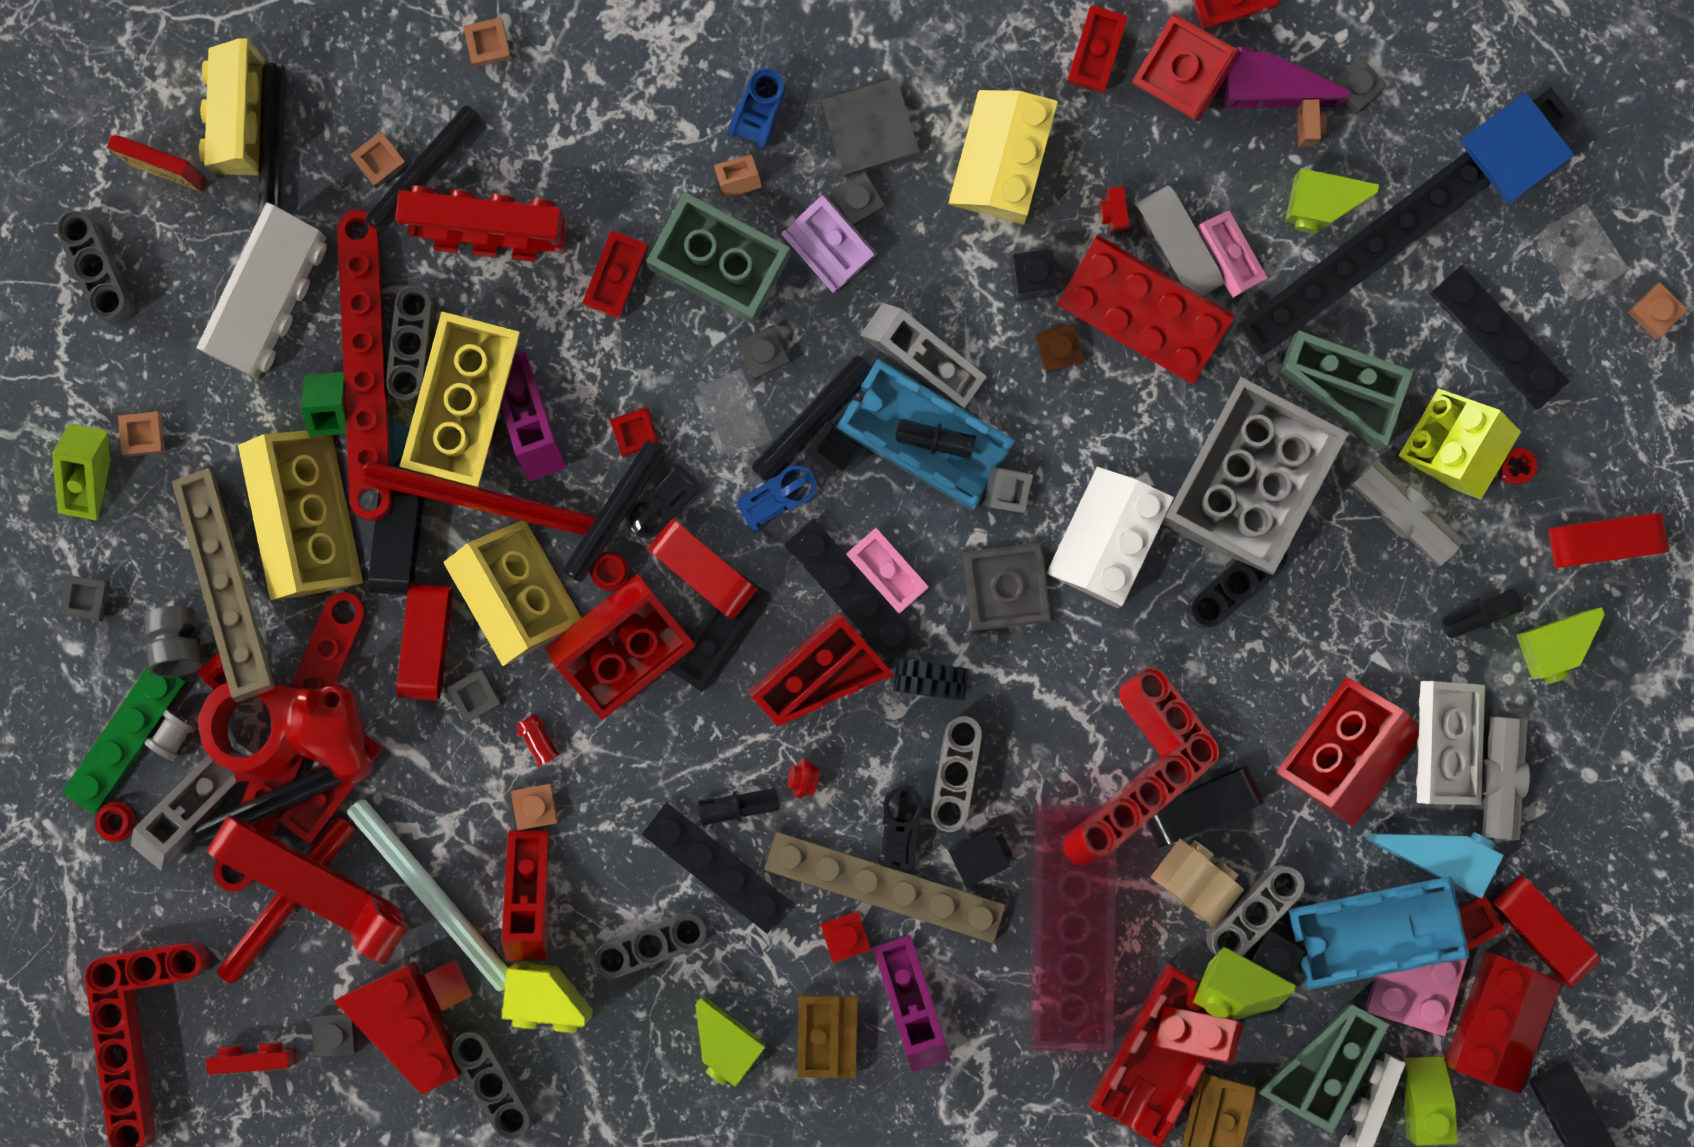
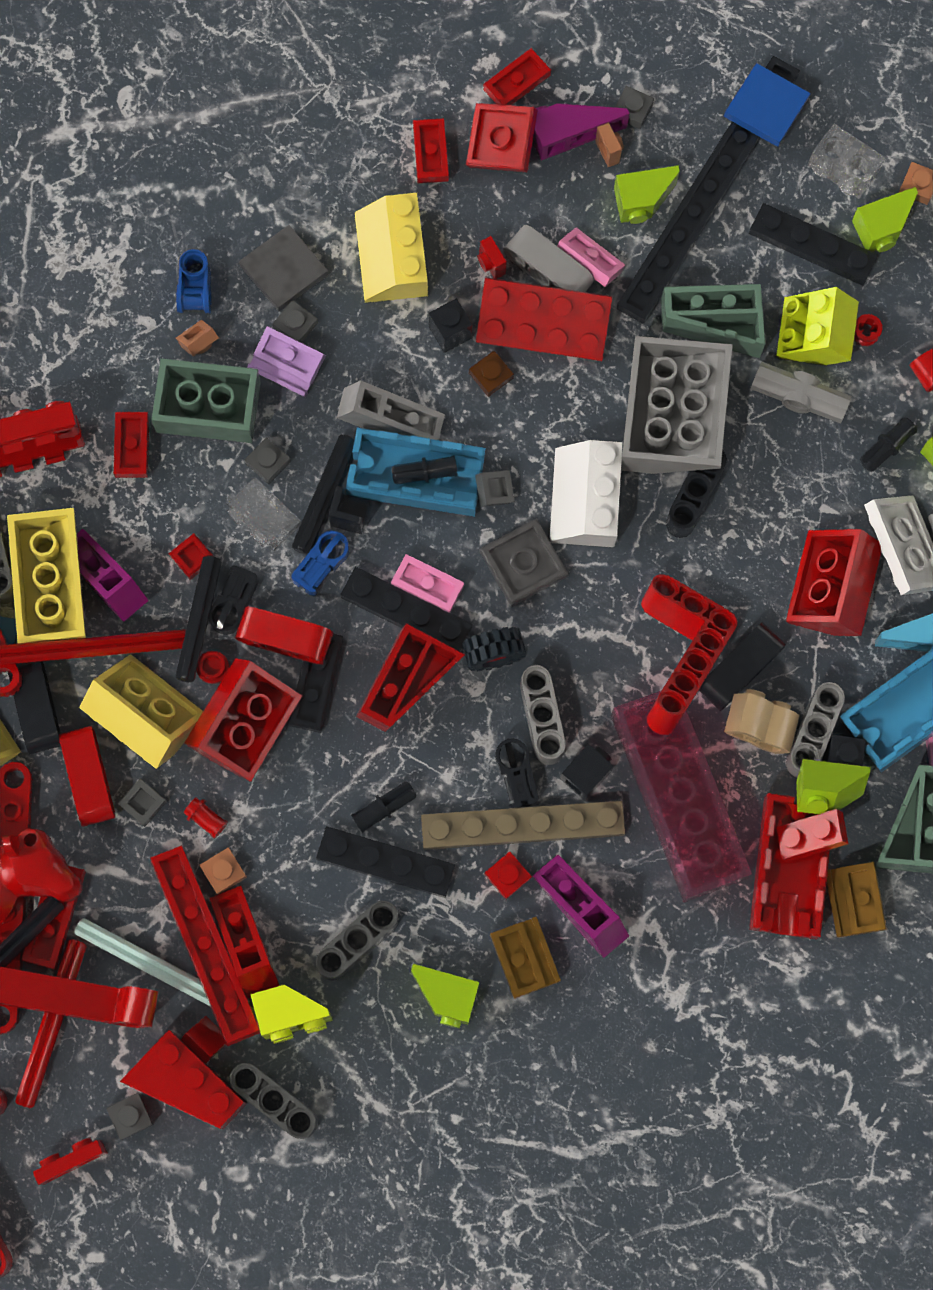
camera: 25 degrees left, 10 degrees down
(481, 884) = (204, 946): none -> red plate
(803, 778) = (426, 765): red plate -> none
(1594, 344) = (883, 220): none -> lime slope

